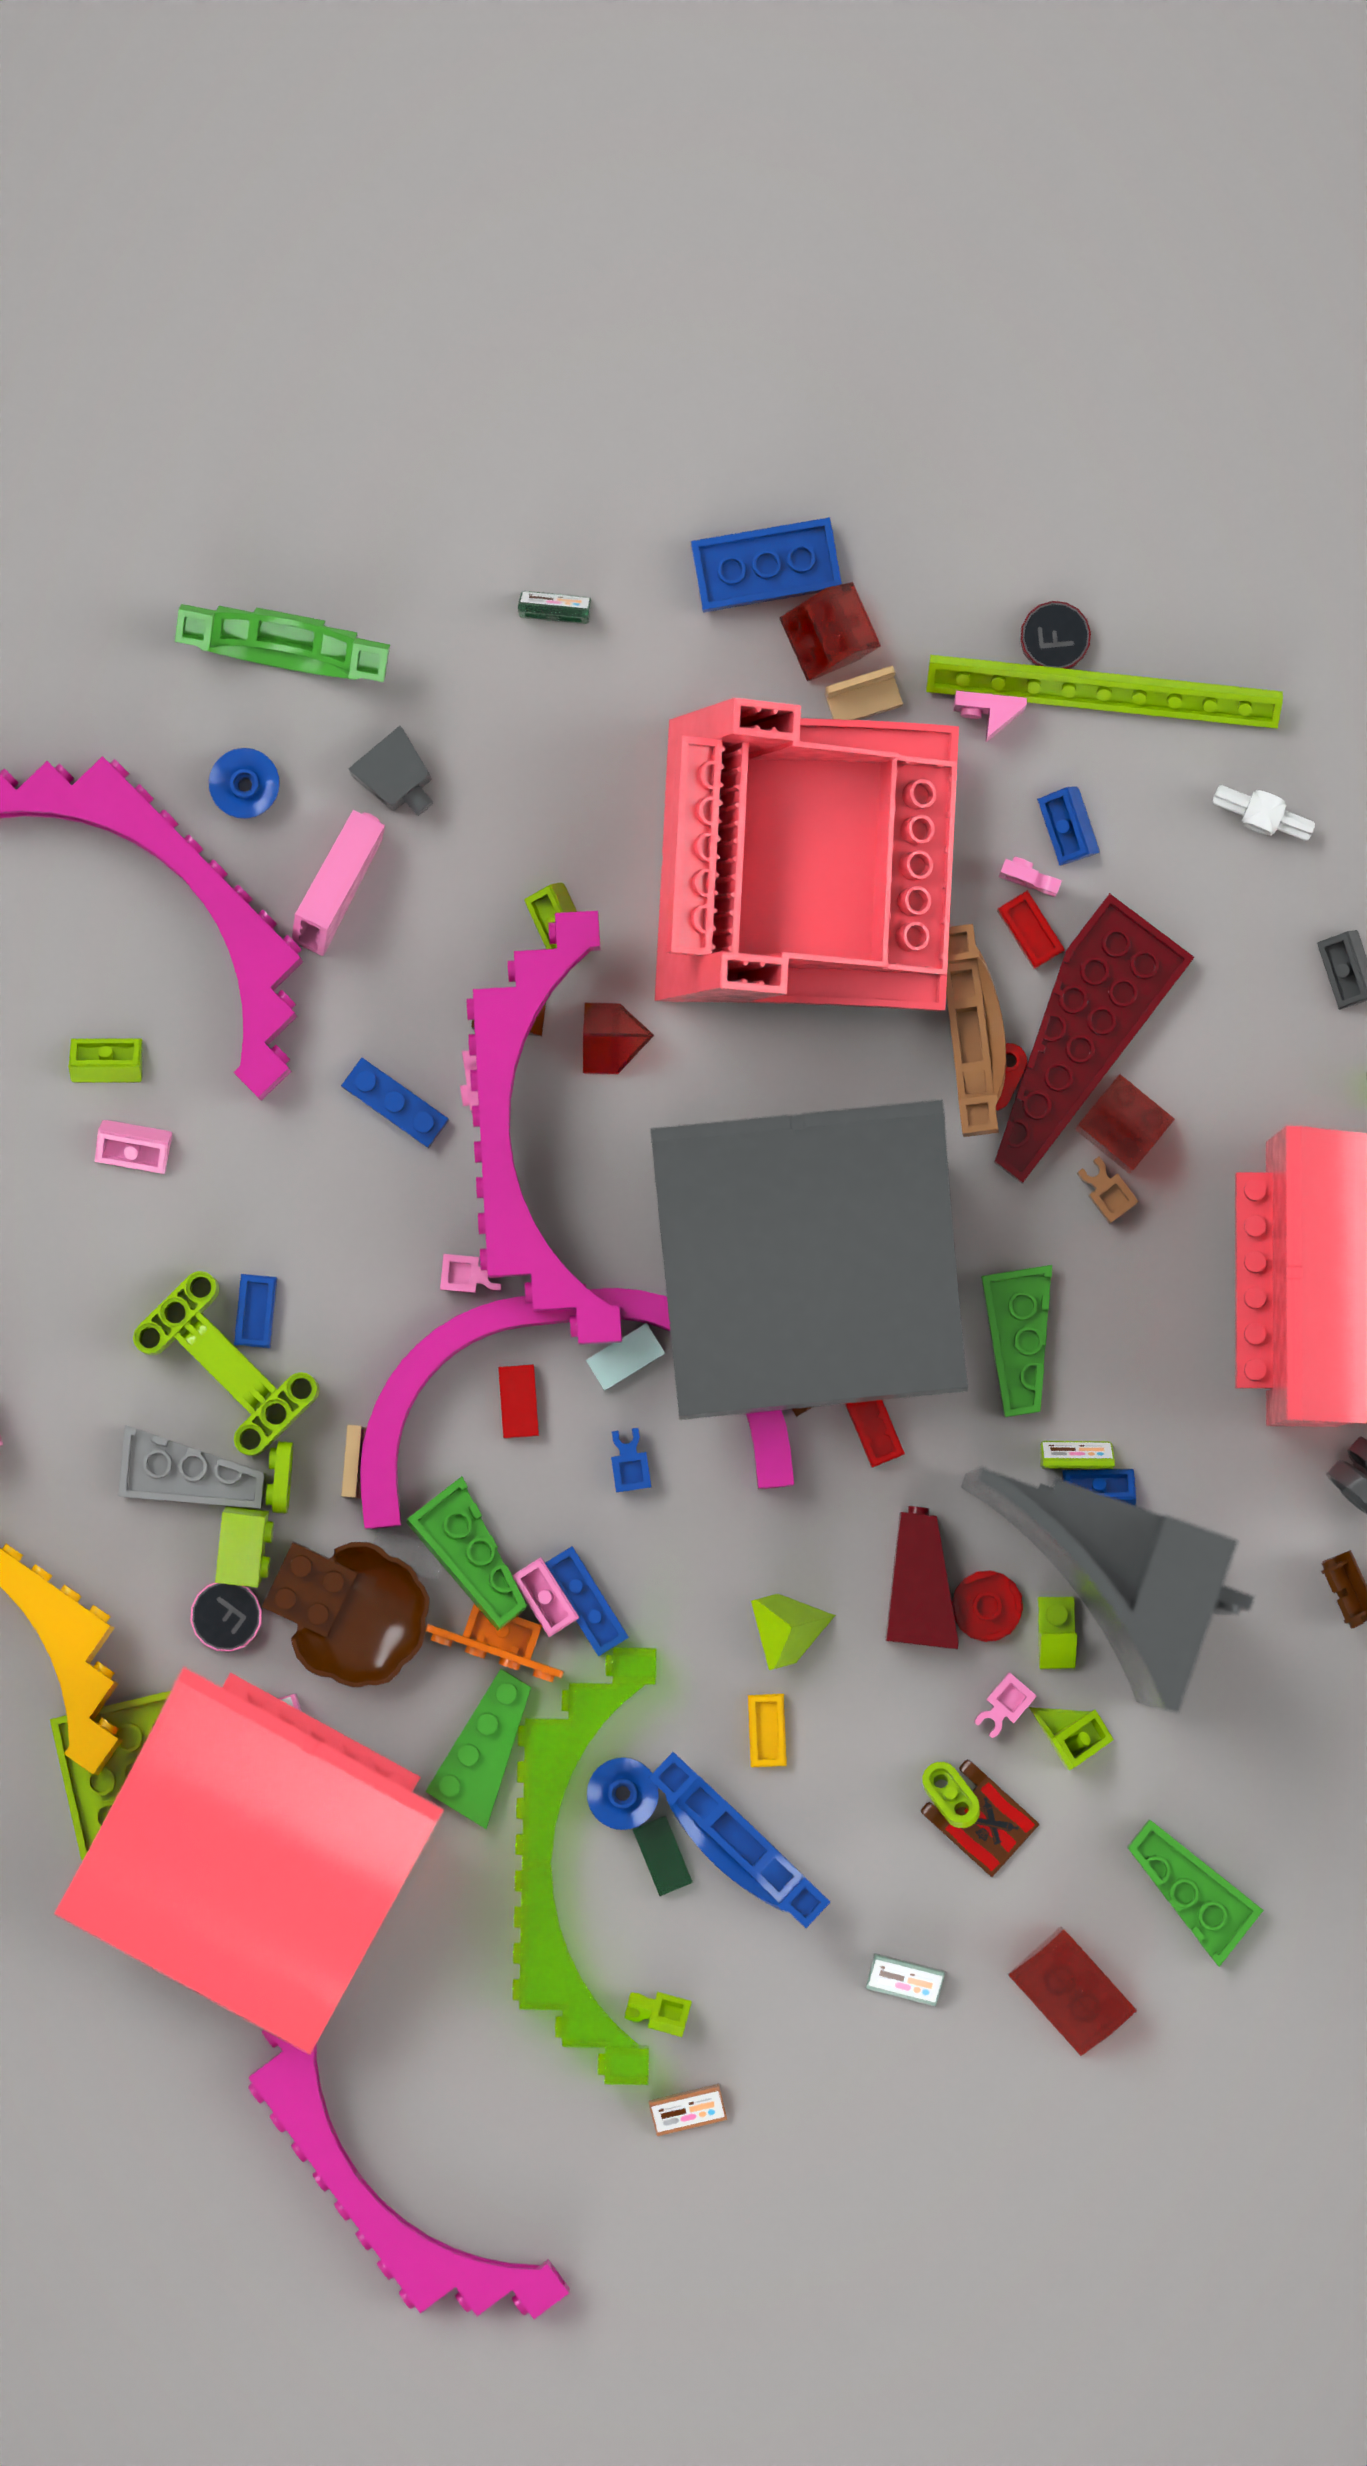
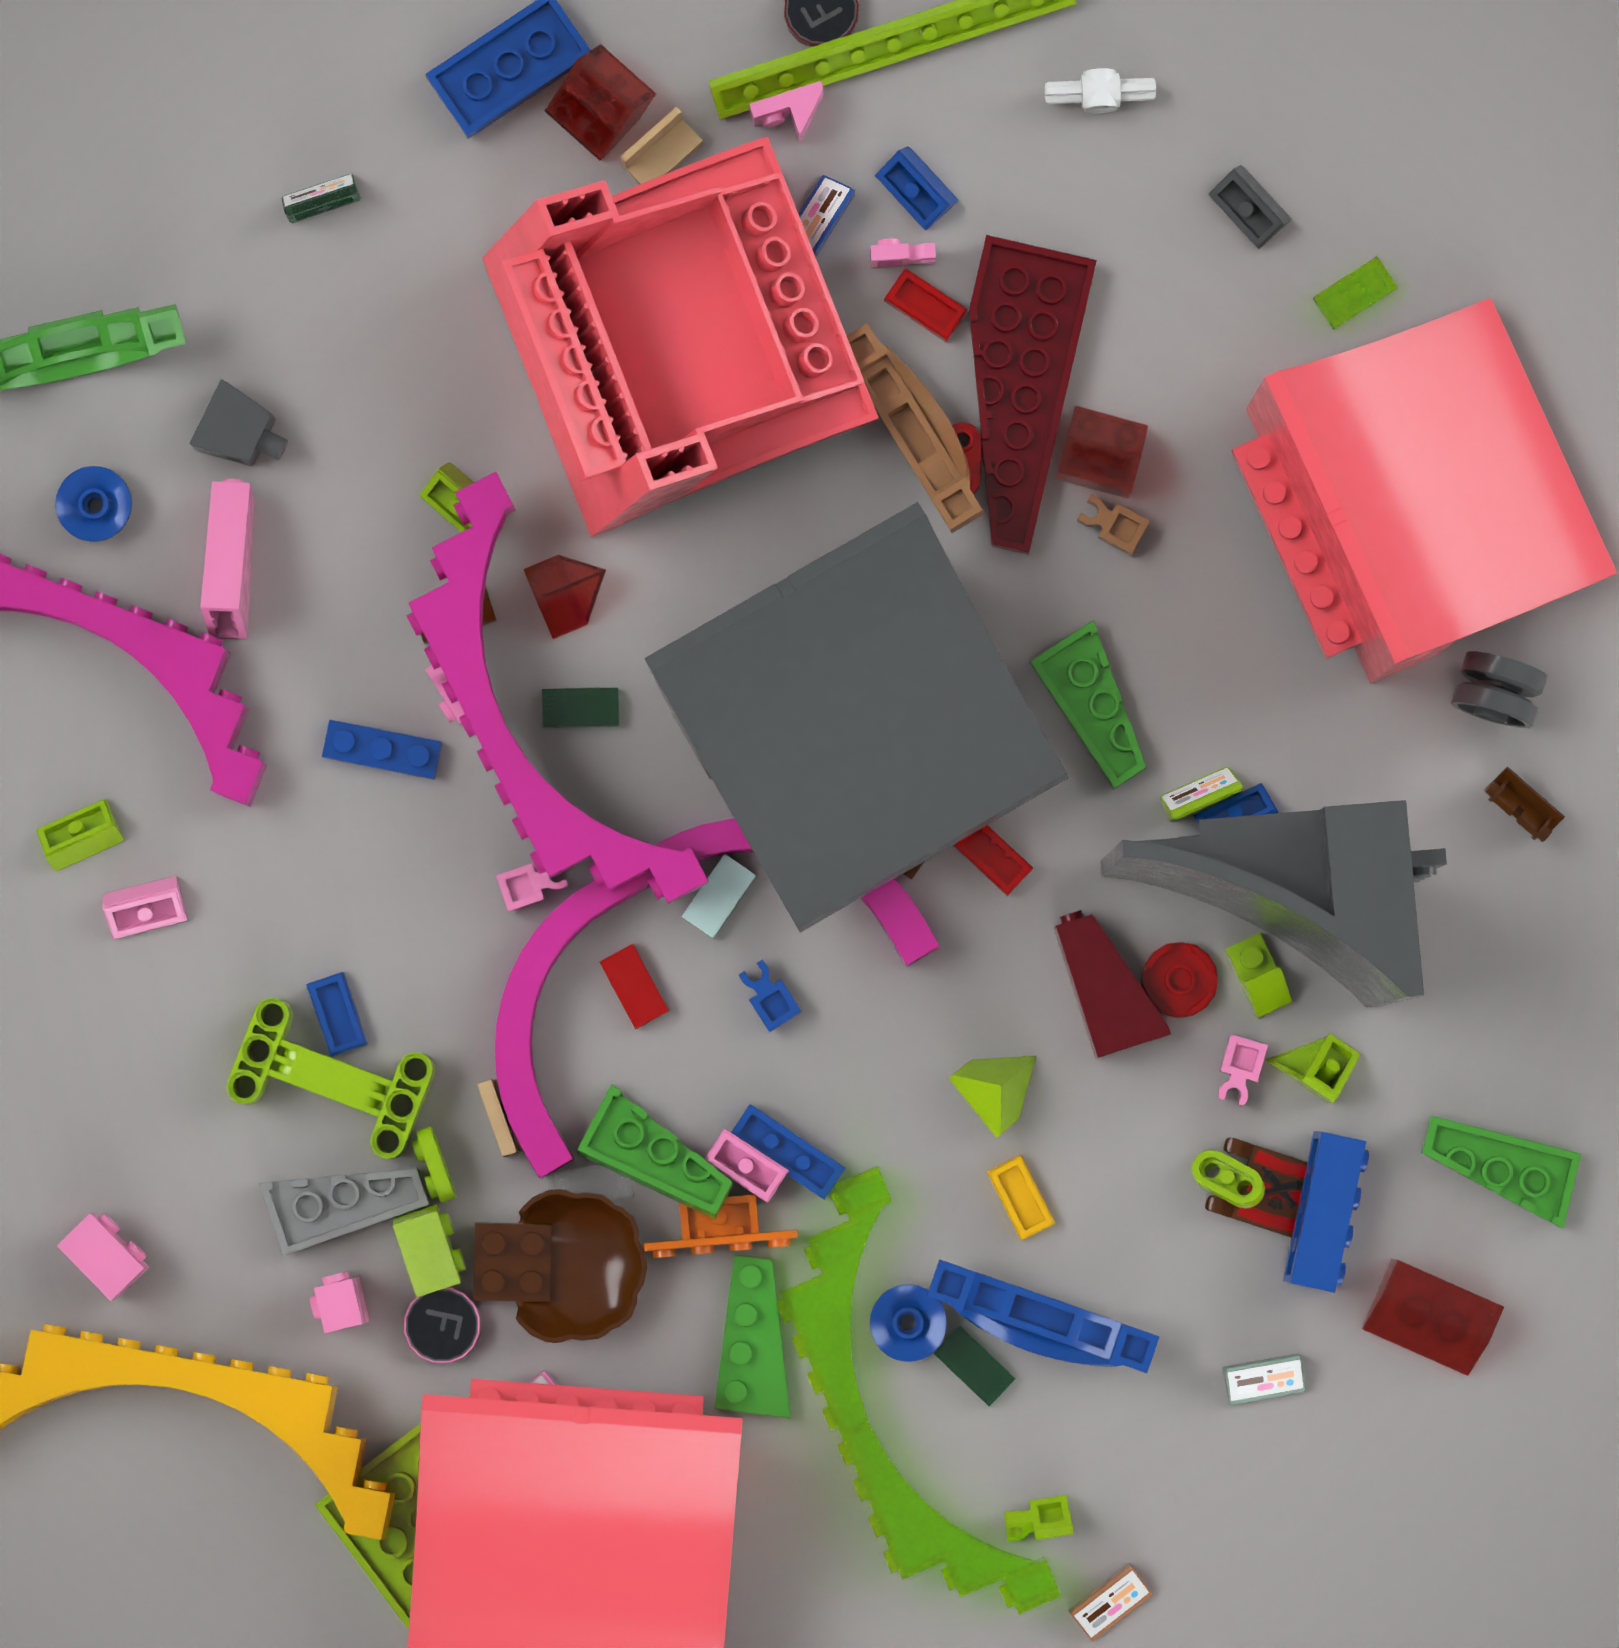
camera: 25 degrees left, 0 degrees up
(148, 1557) = (339, 1302): none -> bright pink brick
(580, 1142) = (580, 707): none -> clear green tile
(979, 810) = (824, 210): none -> slope
(1021, 1860) = (1326, 1211): none -> blue brick

